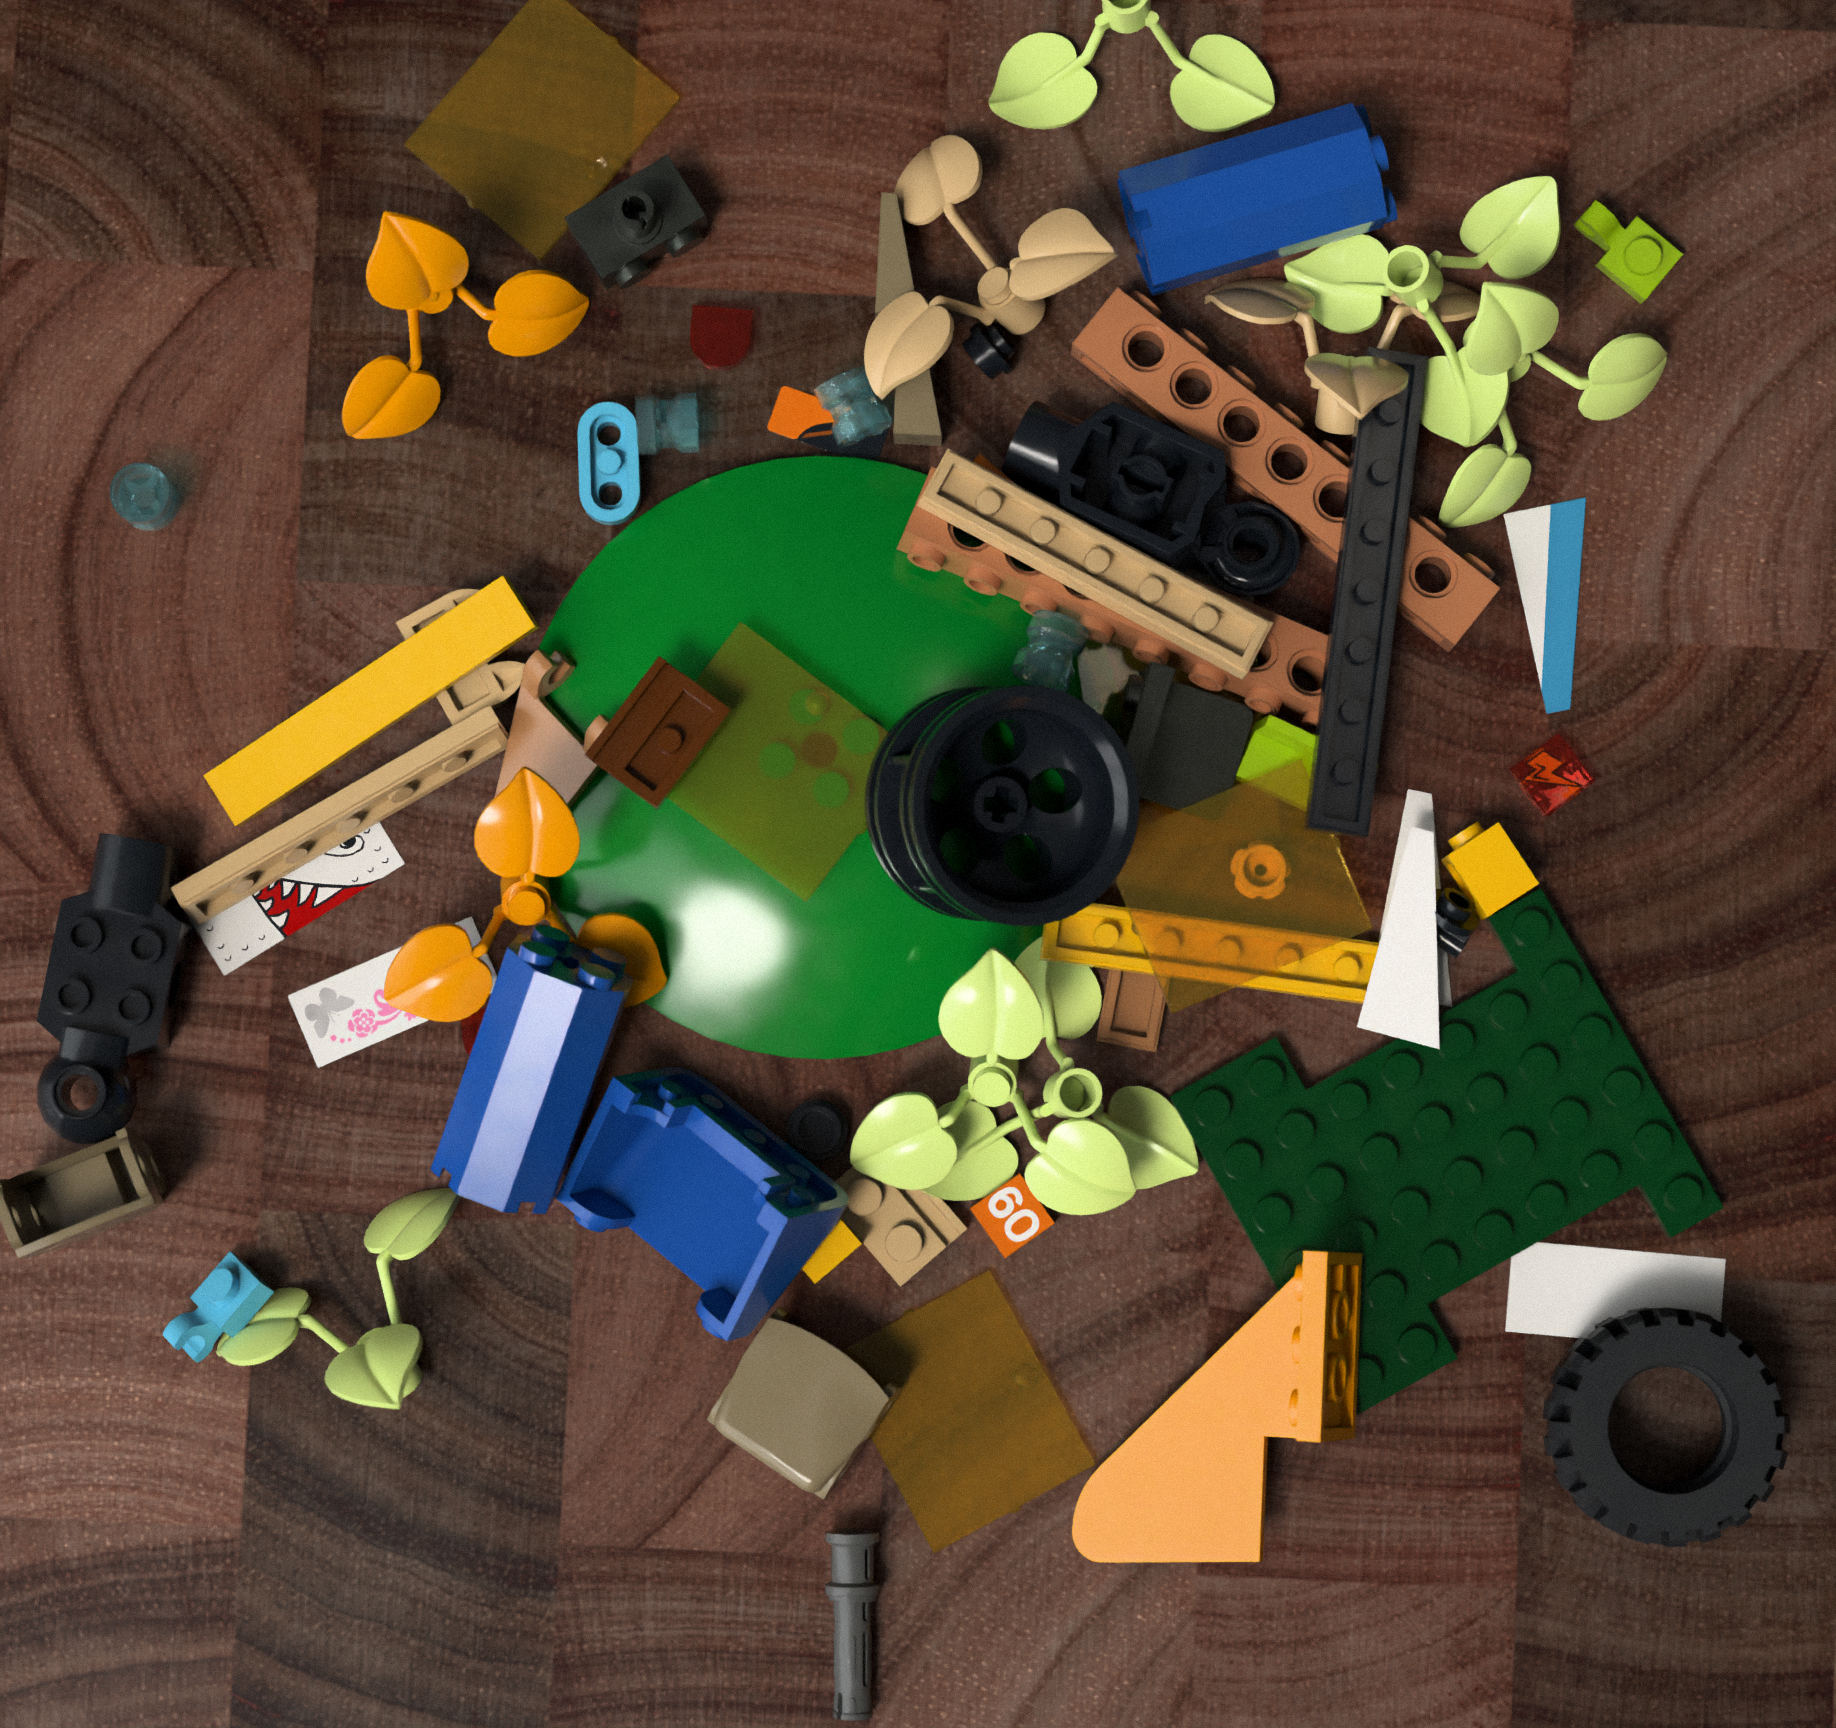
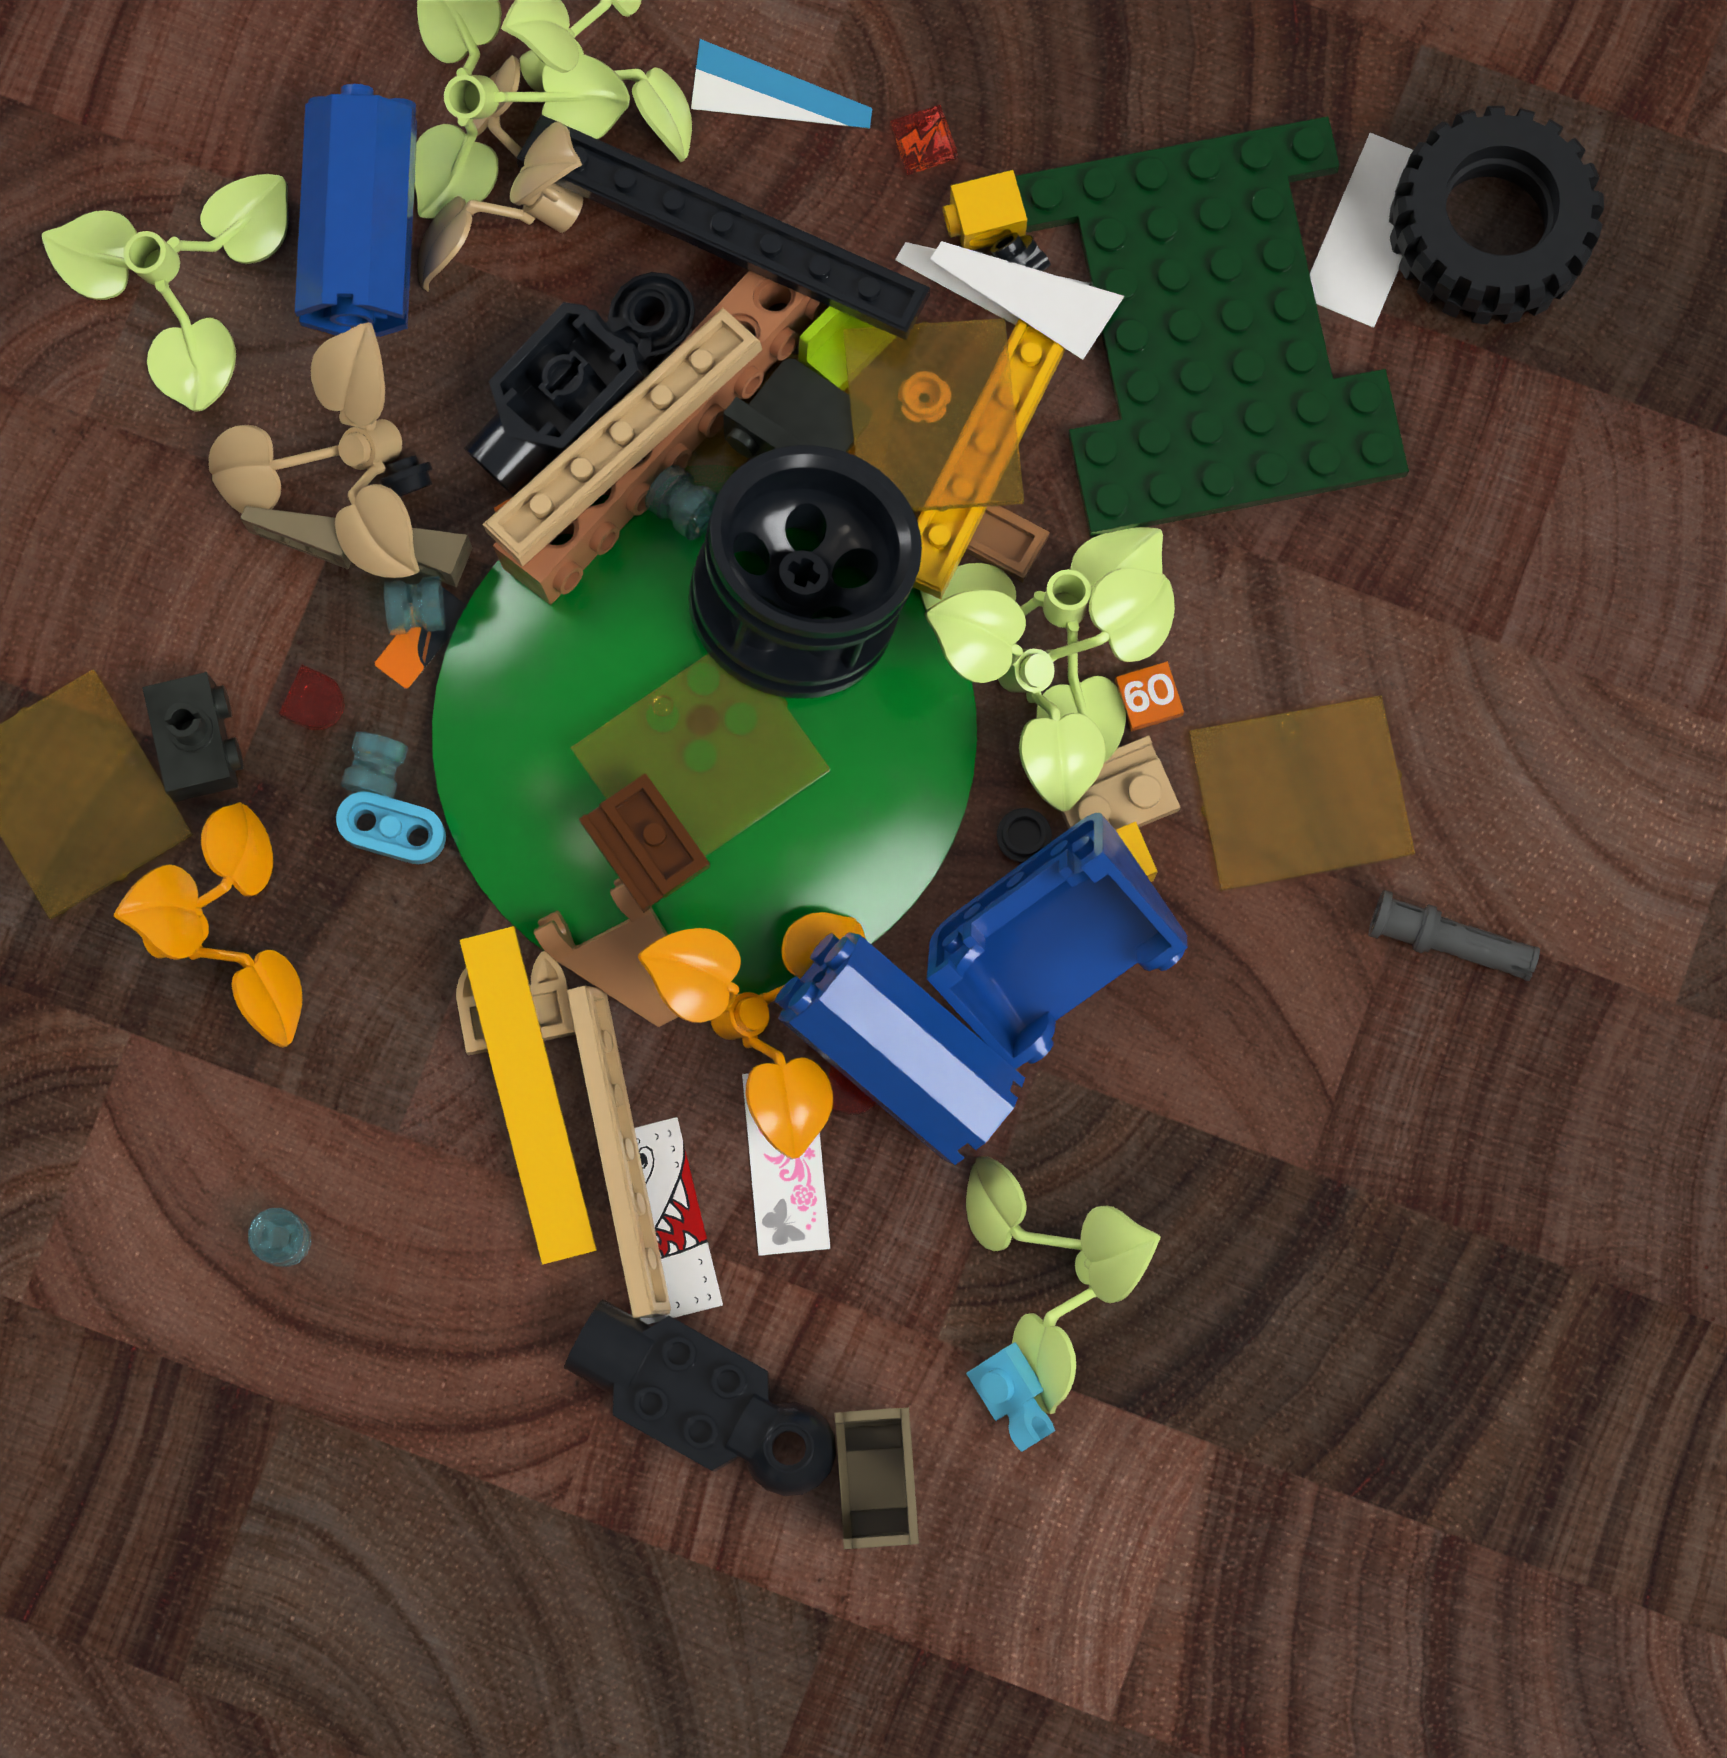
camera: 75 degrees left, 5 degrees down
(801, 1405) = (1256, 916): dark tan piece -> none
(1152, 389) = (445, 380): nougat brick -> none
(1198, 1467) = (1412, 603): light orange piece -> none

